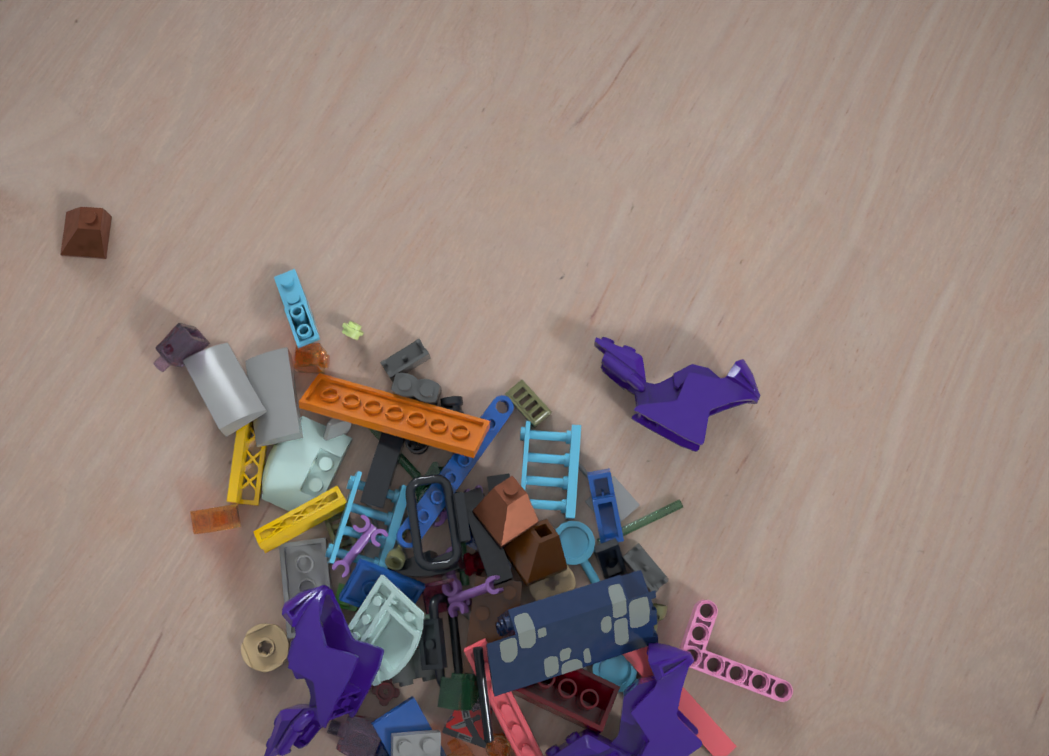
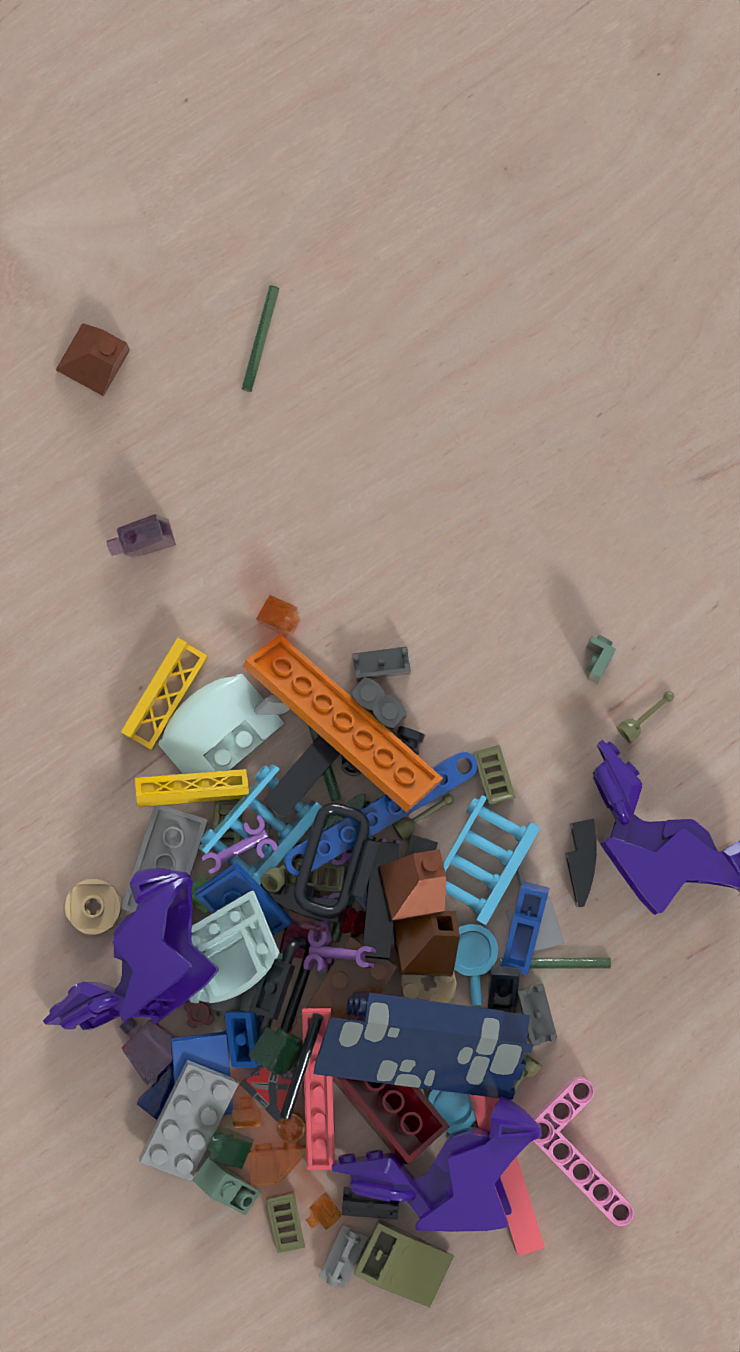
camera: 30 degrees right, 5 degrees up
(206, 163) = (260, 338): none -> clear green bar
(215, 519) = (99, 744): clear orange slope -> none
(224, 388) = (172, 605): light grey slope -> none
(275, 385) = (219, 640): light grey slope -> none
(297, 308) = (289, 553): medium azure slope -> none
(352, 330) = (338, 603): yellowish green plate -> none
(426, 693) = (242, 1037): none -> blue slope
(446, 535) = (338, 881): none -> olive slope
(479, 472) = (406, 826): none -> olive hinge
(565, 273) = (603, 654): none -> sand green bracket
(613, 322) = (631, 729): none -> olive hinge
(624, 435) = (582, 861): none -> black slope

